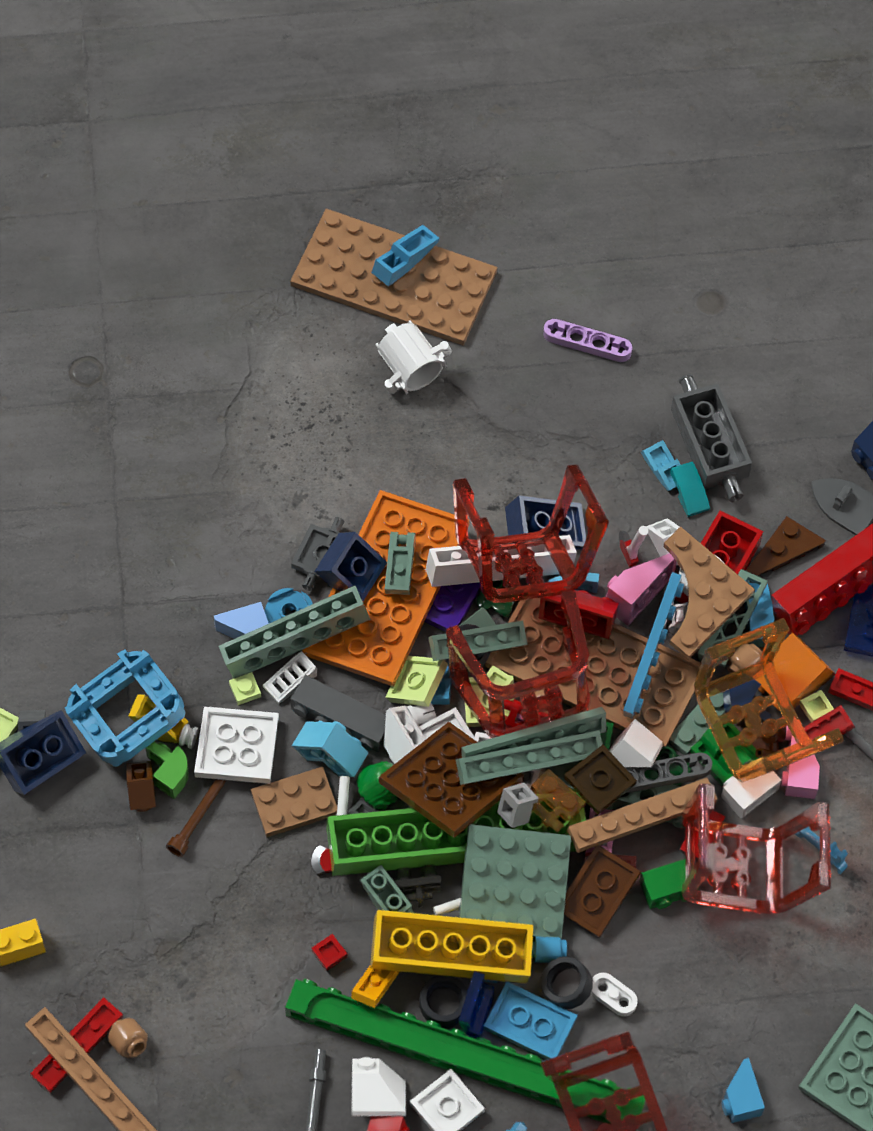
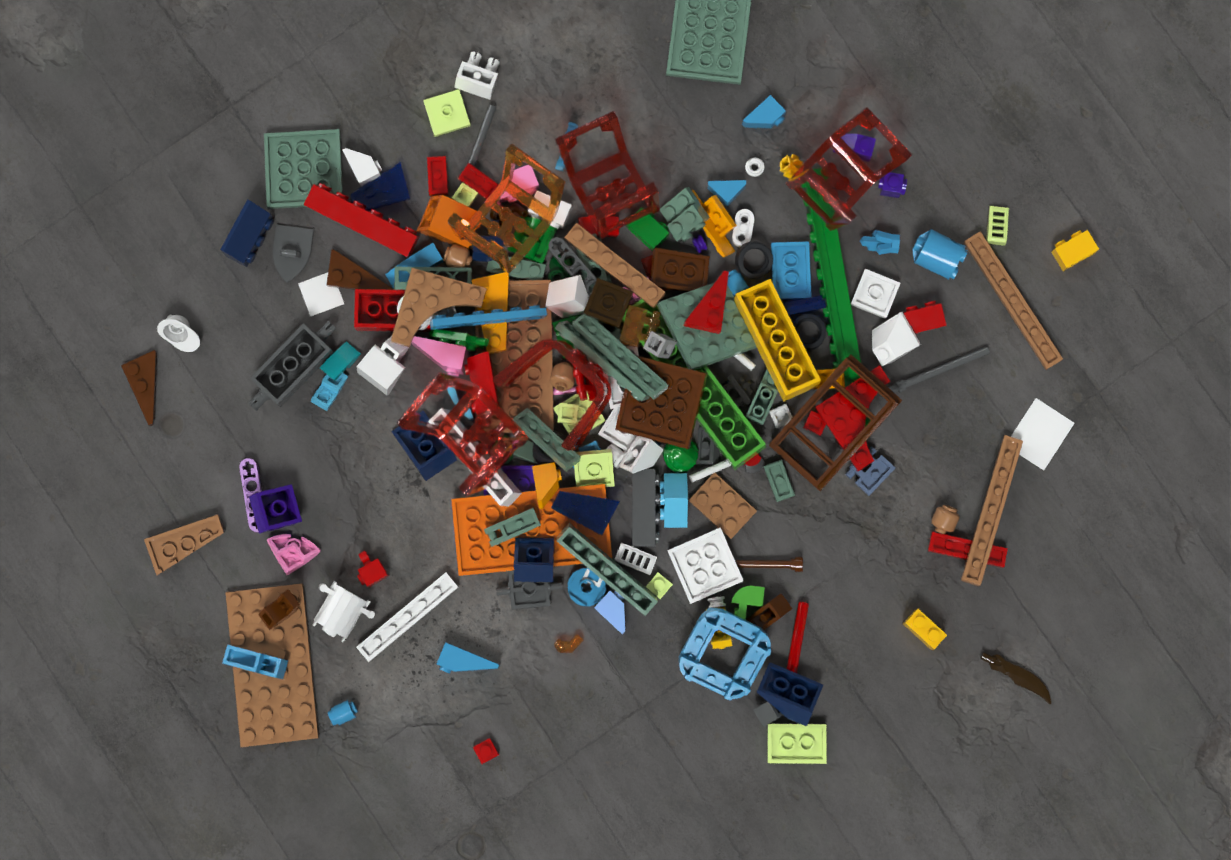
camera: 115 degrees left, 20 degrees up
(94, 802) = (797, 637): none -> red axle
(175, 430) = (486, 751): none -> red plate
(228, 984) = (873, 476): none -> sand blue plate
(237, 558) = (568, 646): none -> clear orange arm
(286, 876) = (779, 481): none -> sand green plate
(287, 449) = (460, 660): none -> dark azure slope
(302, 314) = (342, 712): none -> dark azure brick
(318, 984) = (847, 420): none -> red plate
(334, 1023) = (876, 421): none -> reddish brown piece
(361, 921) = (780, 416): none -> white tile
(366, 422) = (407, 617): none -> white plate
(374, 645) = (586, 510): none -> clear blue wing
(427, 615) = (546, 482): none -> light orange slope
(436, 410) = (372, 571): none -> red brick
(446, 299) = (279, 610): none -> reddish brown brick
(504, 348) = (292, 552): none -> bright pink brick
(529, 888) = (710, 310): none -> red wing
(558, 345) = (275, 508): none -> dark purple brick
(576, 248) = (180, 542): none -> medium nougat wing
(620, 933) = (699, 243): none -> dark purple bush
(630, 547) = (415, 374): piece -> none
(641, 961) = (718, 224): none -> light orange bracket
(644, 610) = (461, 339): none -> green plate
(657, 514) = (380, 369): none -> white slope
(663, 931) = (684, 215): none -> sand green plate
(663, 1088) = (790, 165): none -> yellow gear
(668, 998) = (726, 190): none -> dark azure slope
(672, 668) = (495, 298): none -> light orange wing
(683, 1042) = (754, 161): none -> white plate
(776, 505) = (320, 296): none -> white sticker
(777, 295) = (141, 377): none -> reddish brown wing
(811, 349) = (178, 332): none -> white piece

